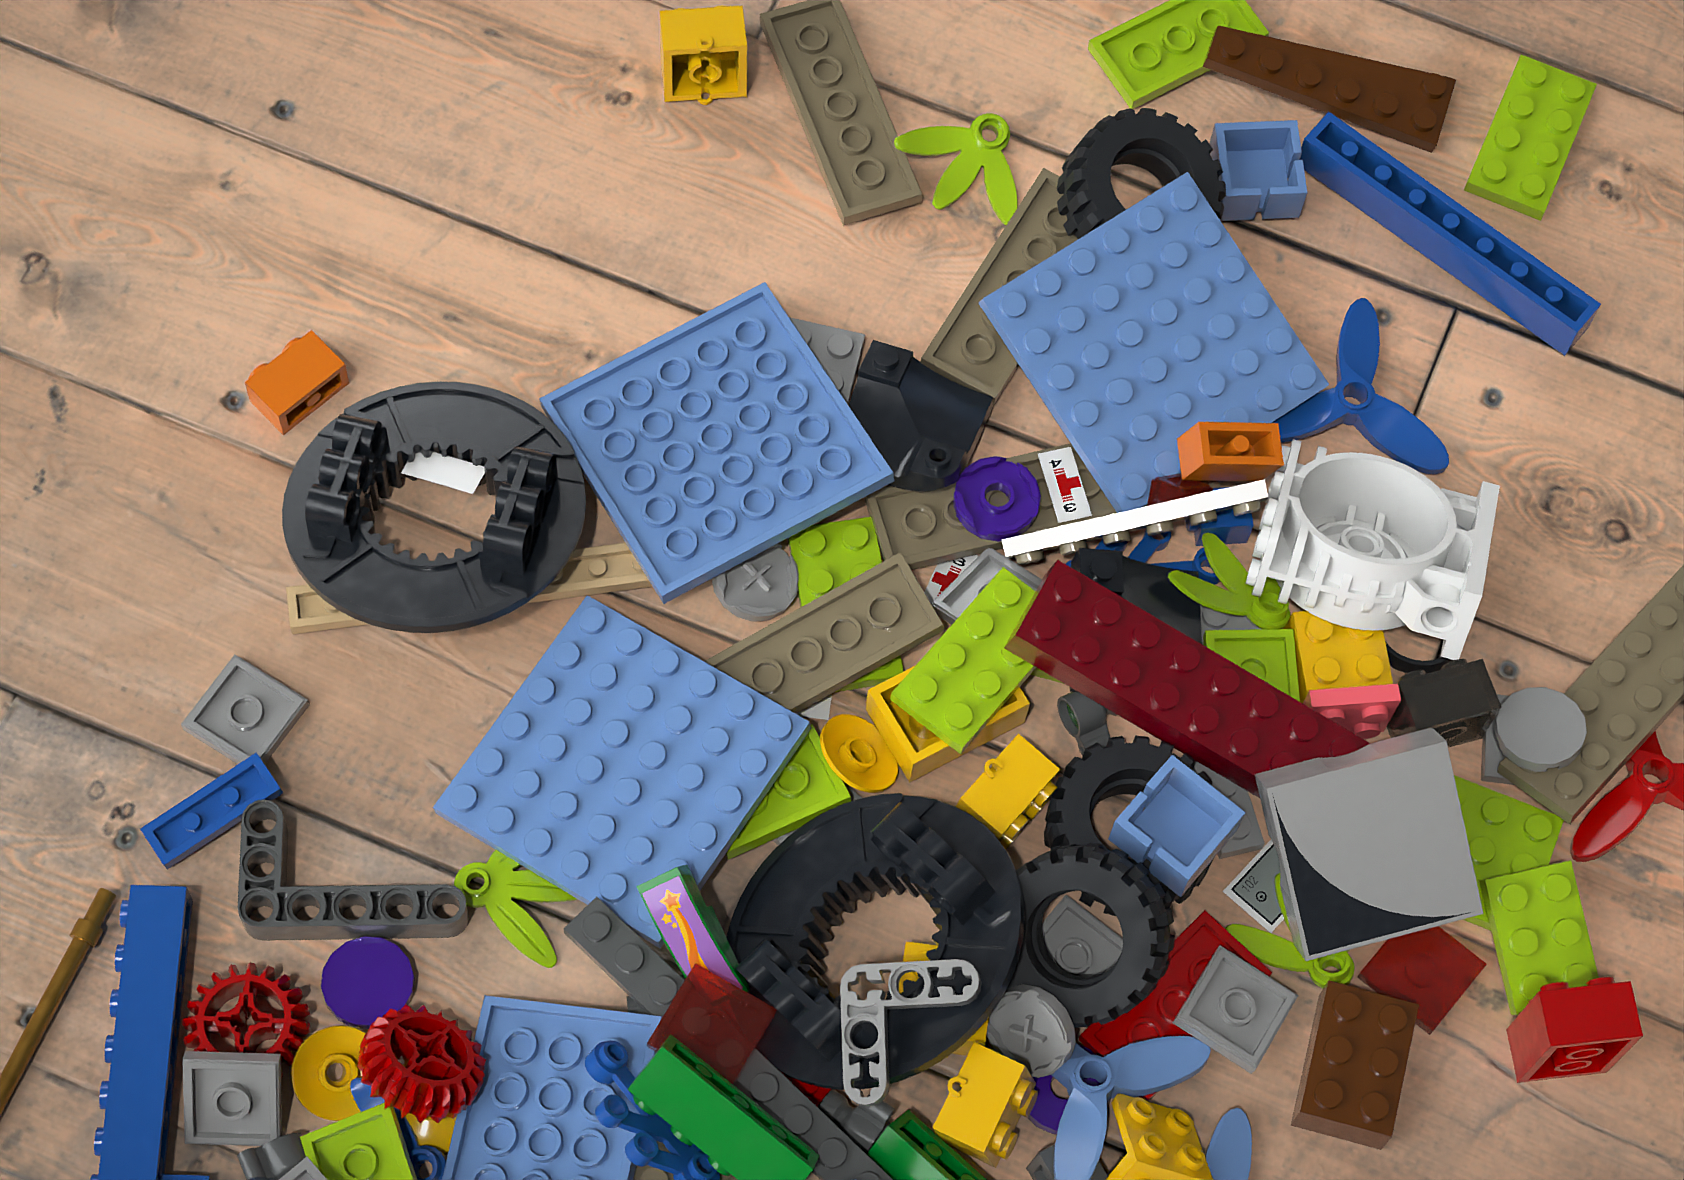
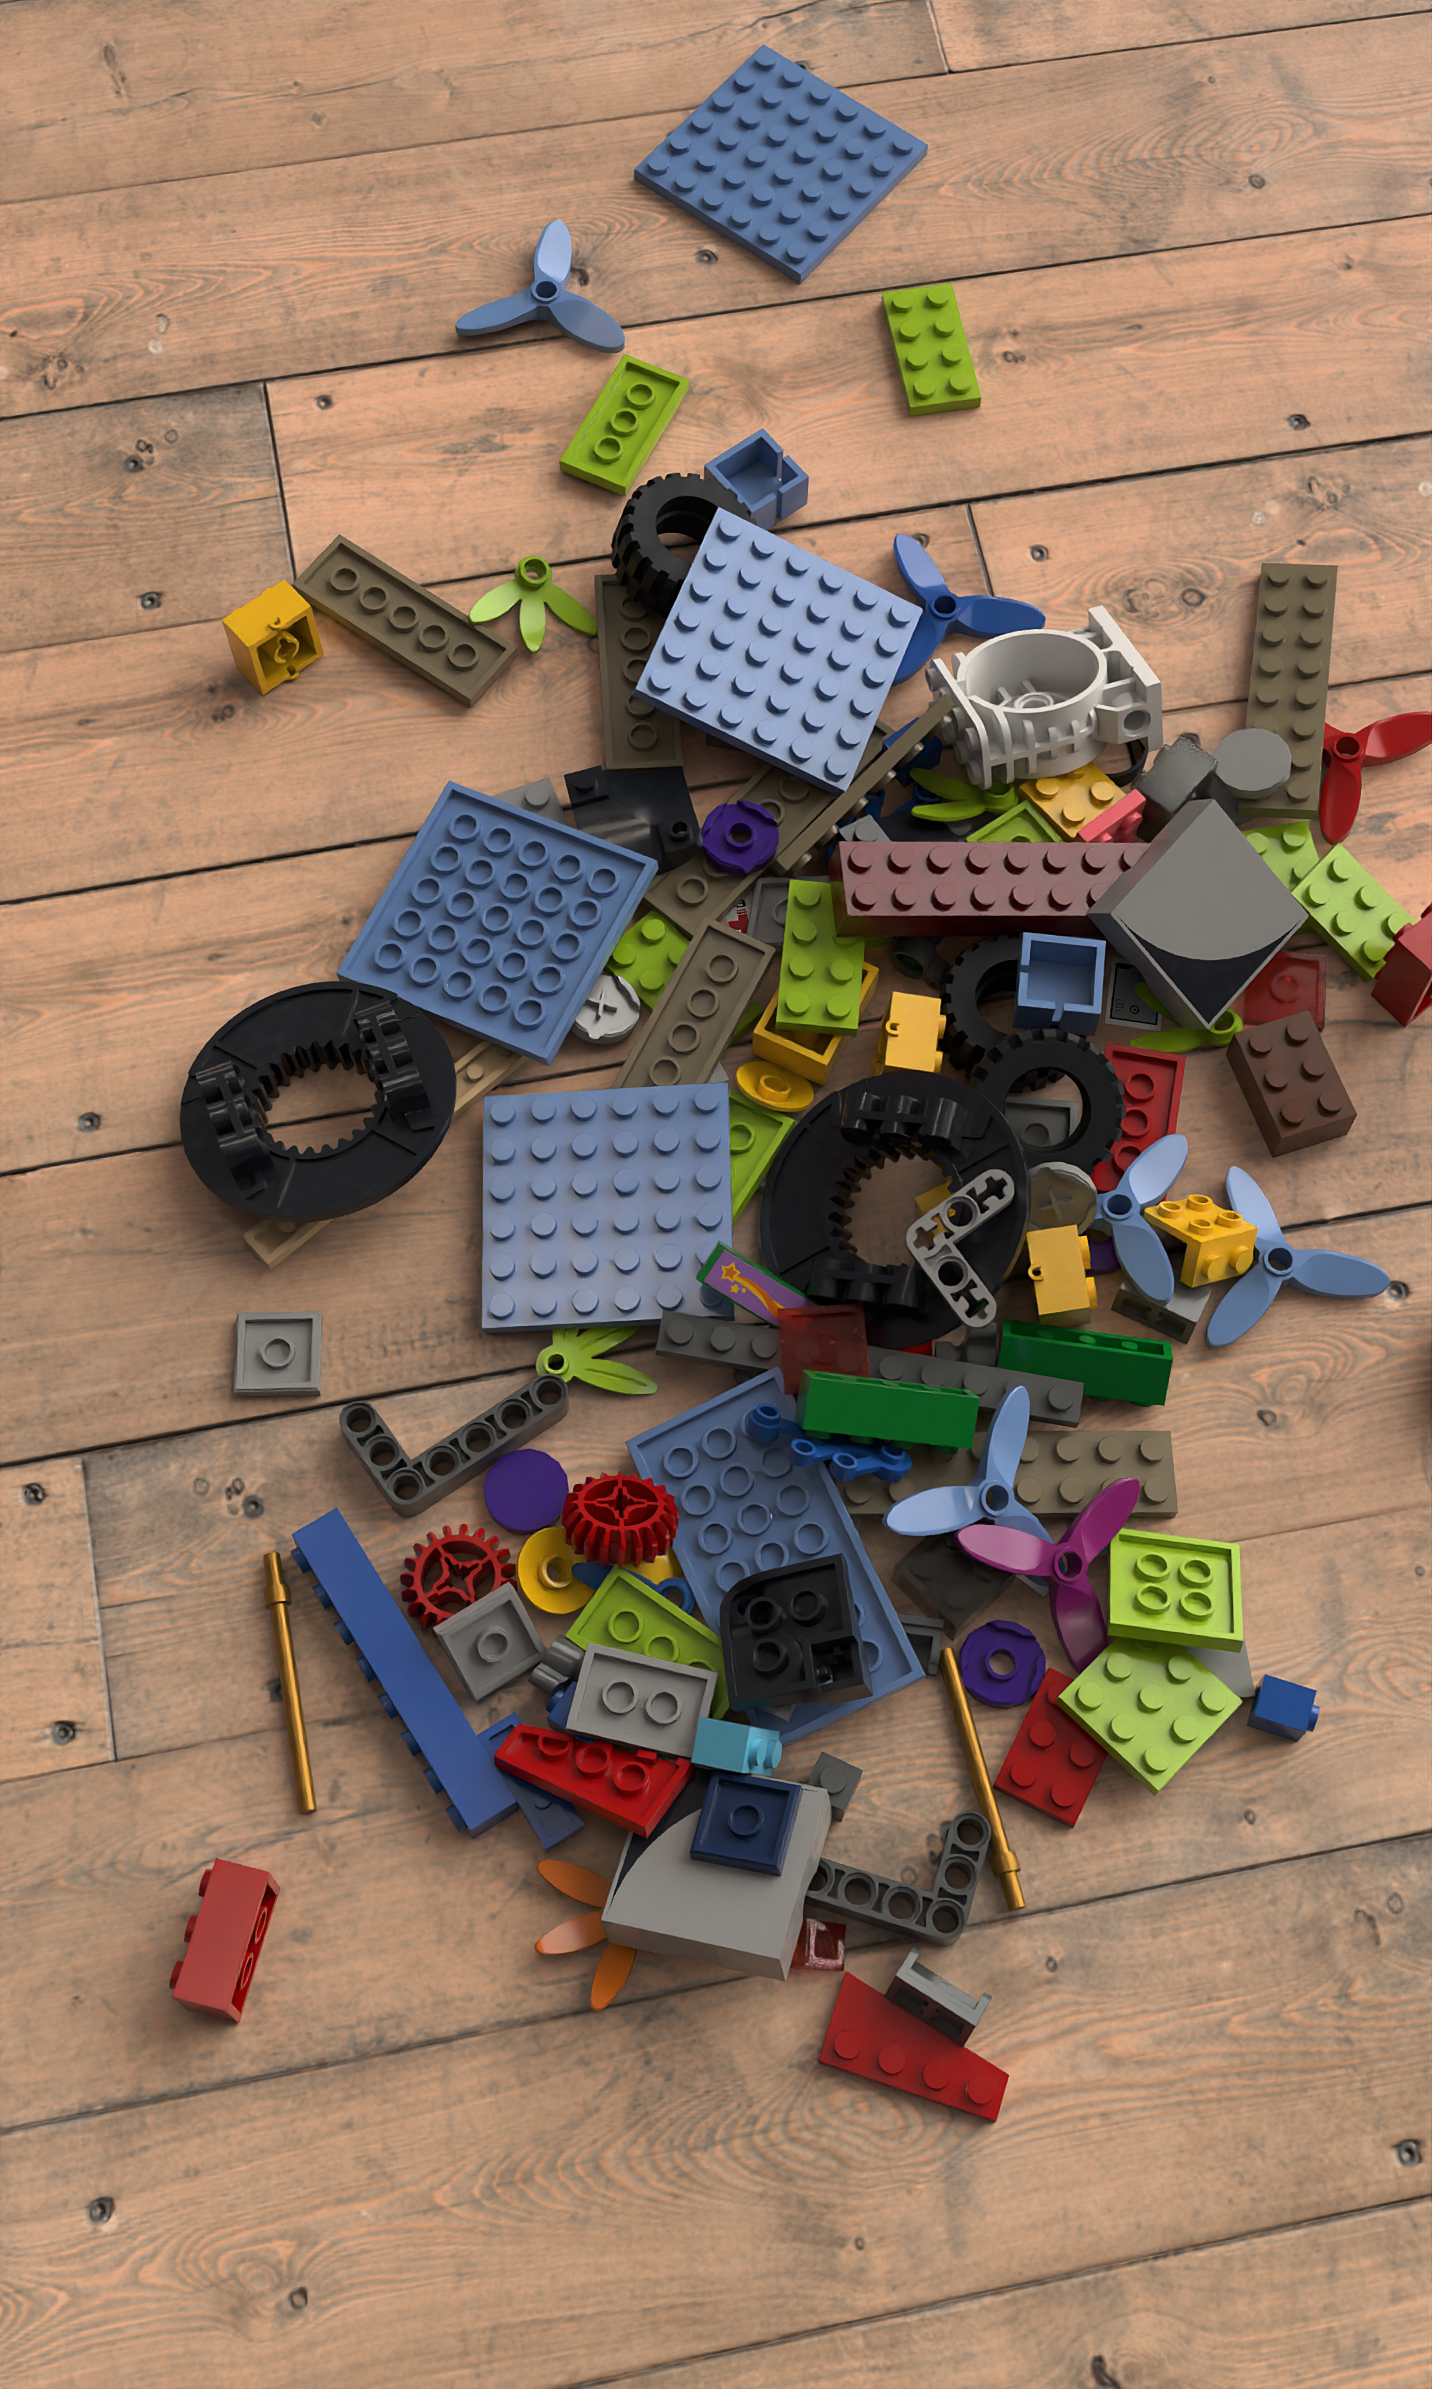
camera: 30 degrees left, 0 degrees up
(210, 811) = (309, 1441): blue plate -> none
(296, 381) = (131, 1076): orange brick -> none
(445, 471) = (305, 1070): white sticker -> none
(1064, 484) = (781, 797): white sticker -> none
(1173, 488) = (870, 748): clear red slope -> none
(1230, 451) = (894, 695): orange brick -> none
(1235, 1009) = (1182, 1096): light grey tile -> none
(1363, 91) = (782, 385): reddish brown wing -> none
(1448, 233) = (928, 450): blue brick -> none

